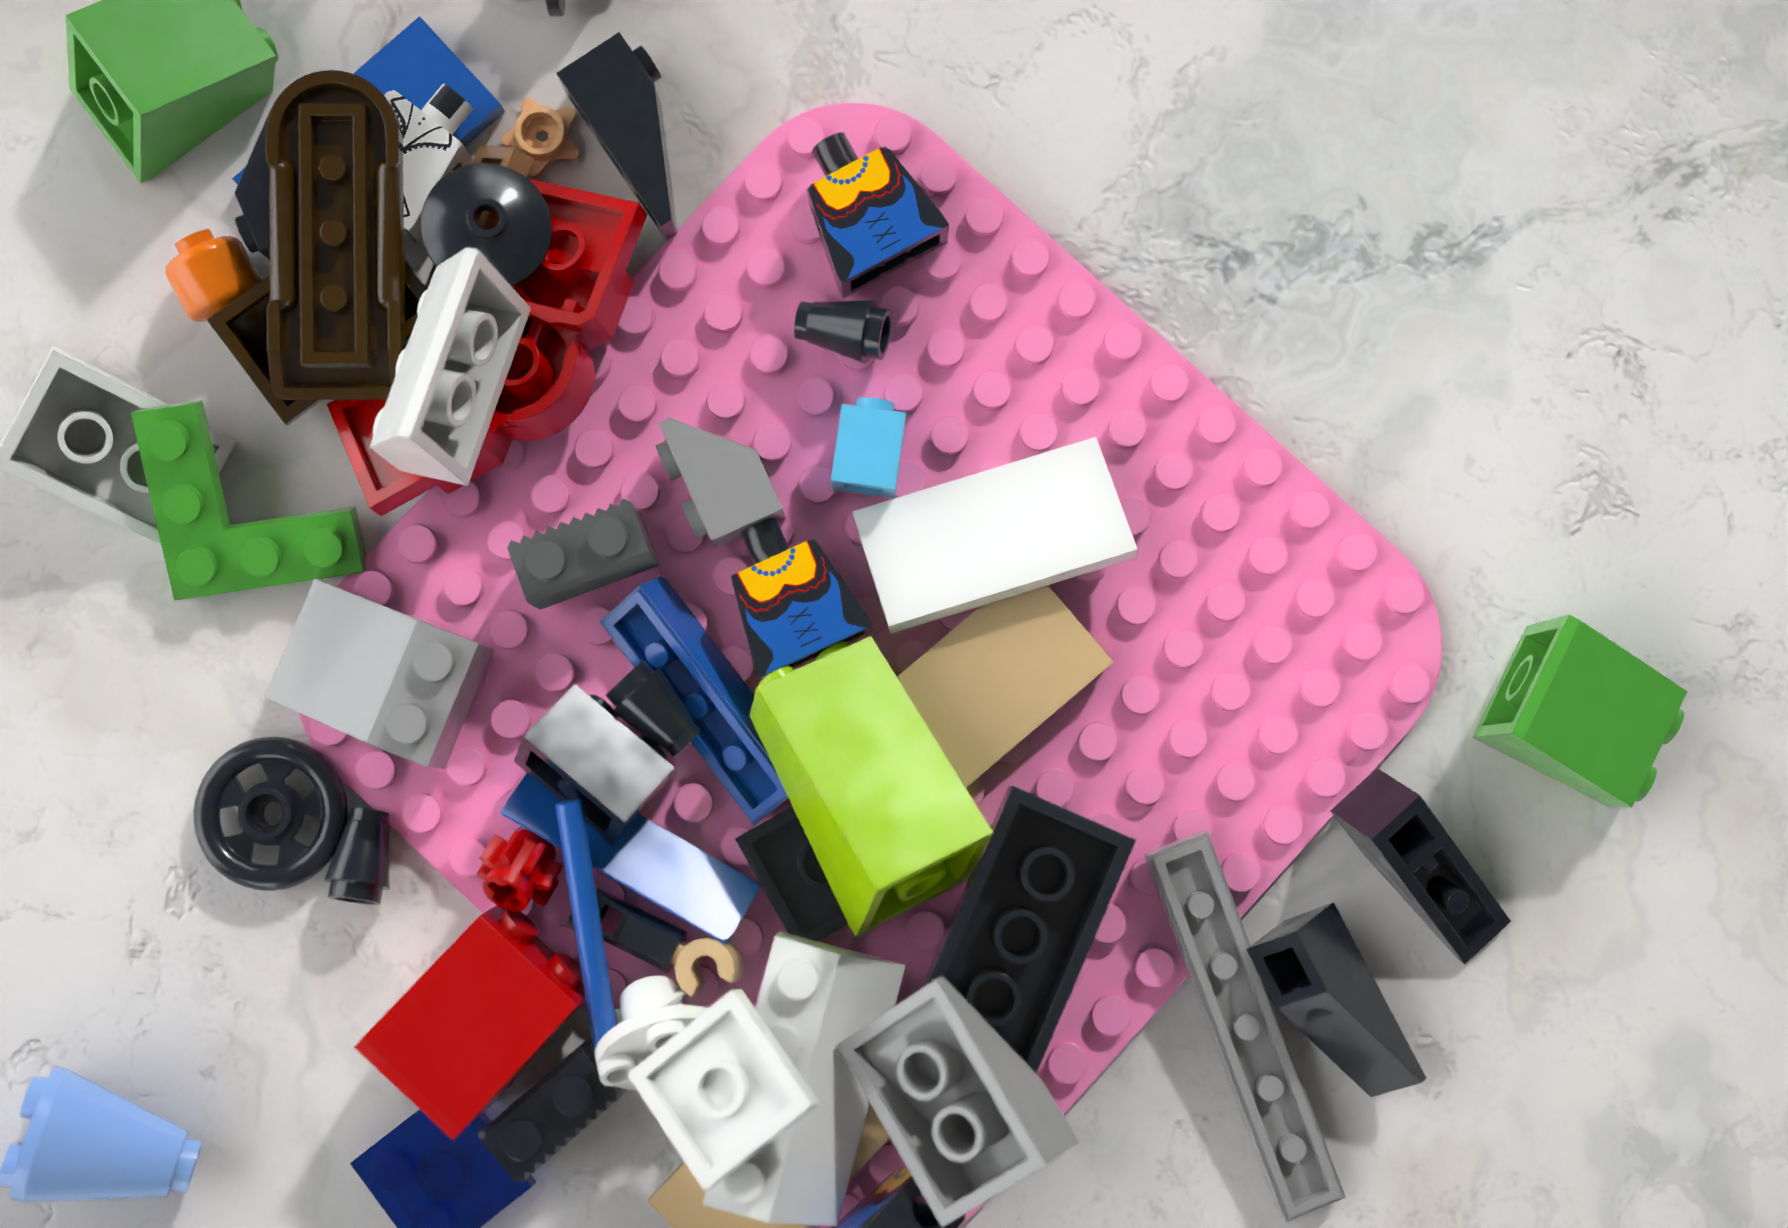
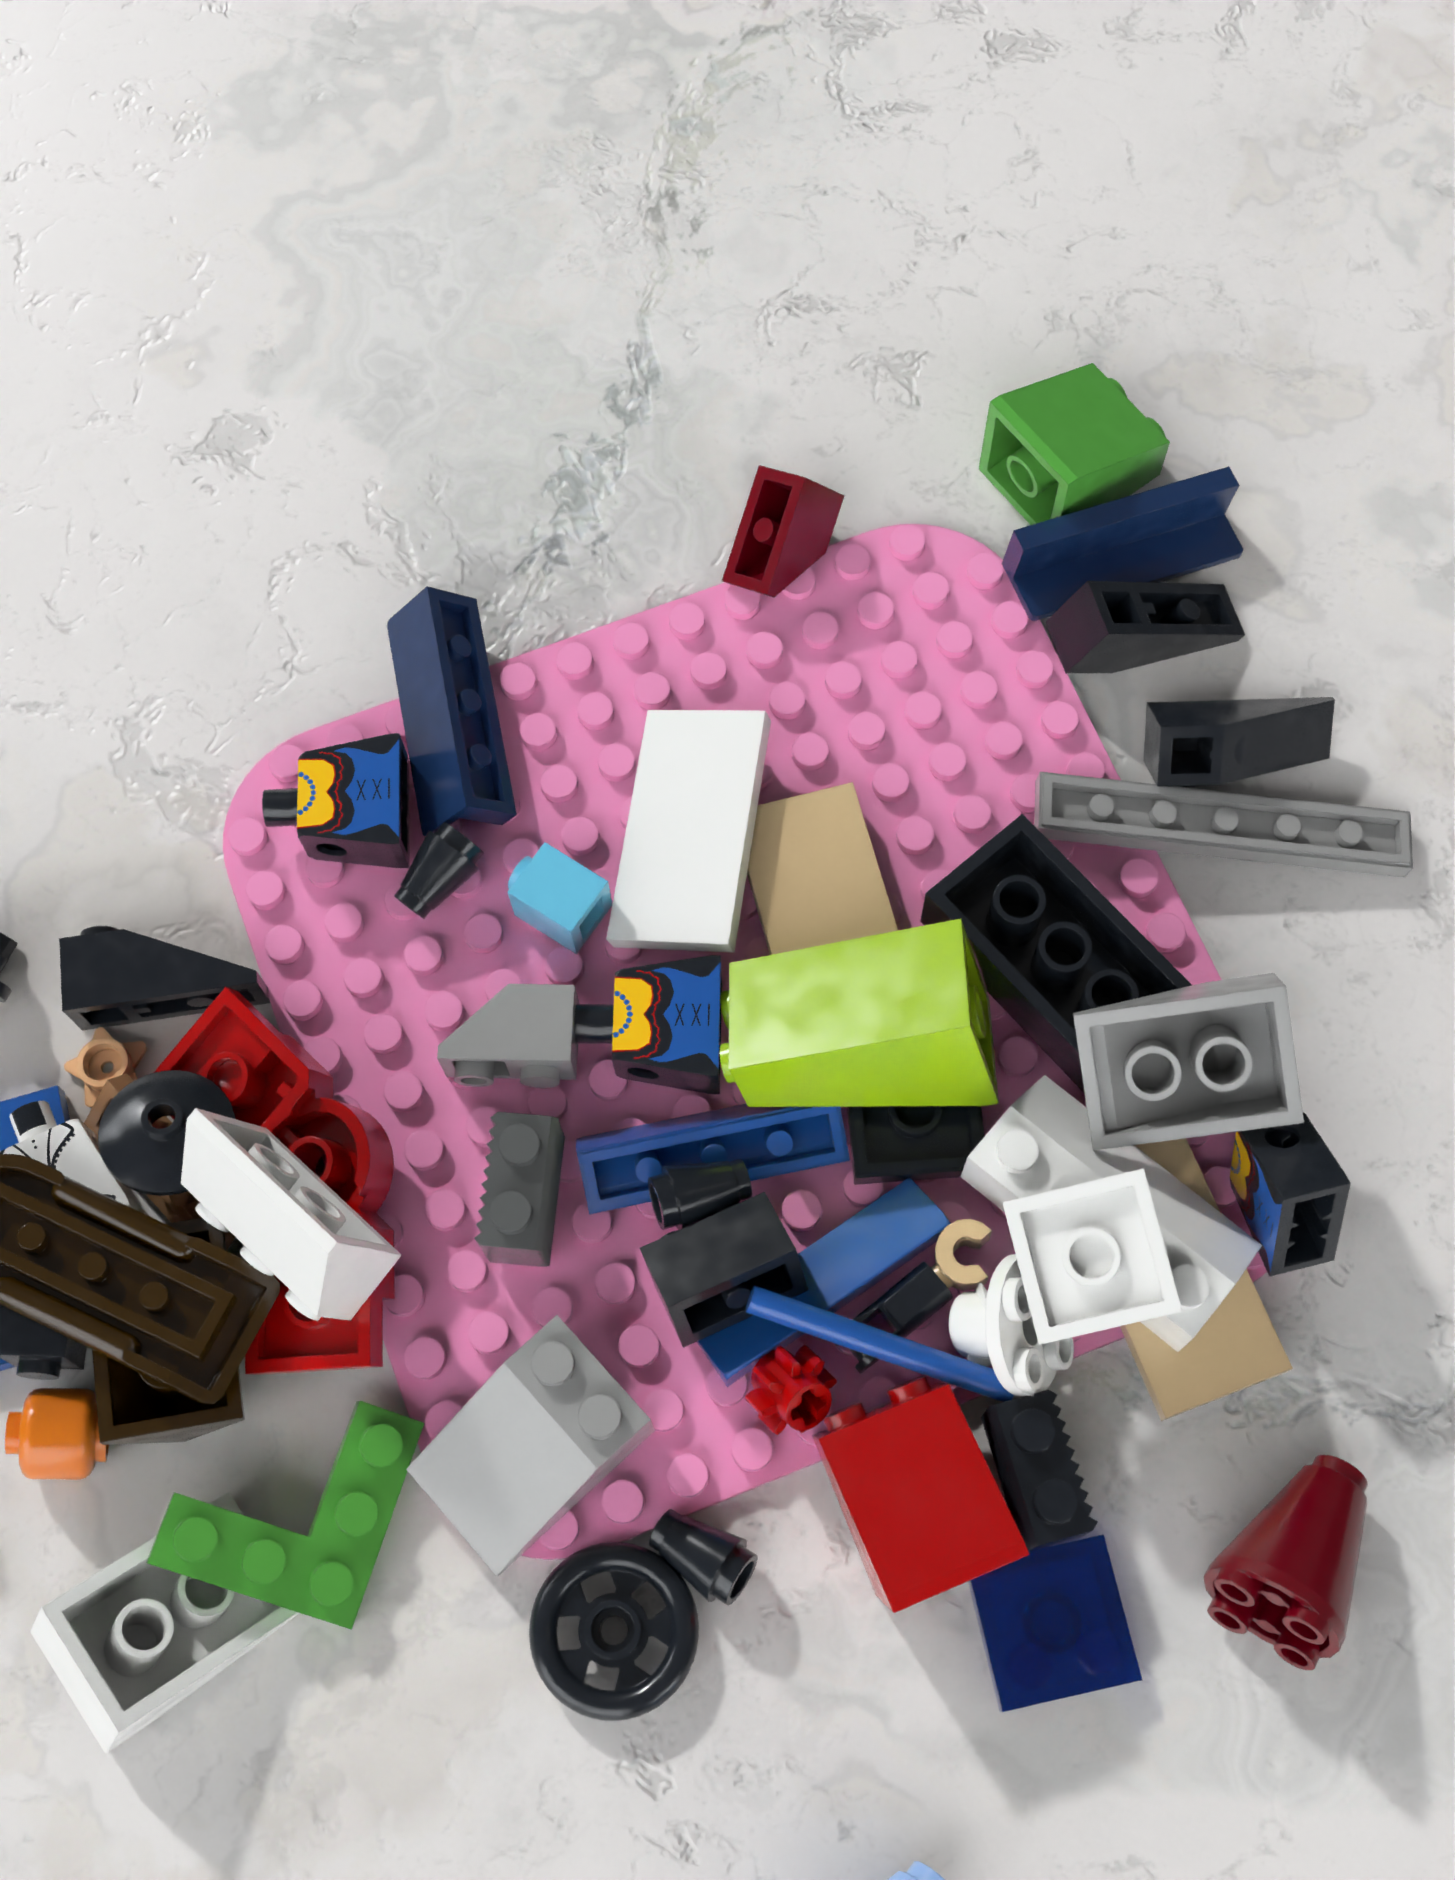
camera: 60 degrees left, 15 degrees down
(1007, 255) = (449, 711): none -> dark blue panel
(1345, 471) = (781, 531): none -> dark red slope
(1498, 810) = (1125, 540): none -> dark blue panel

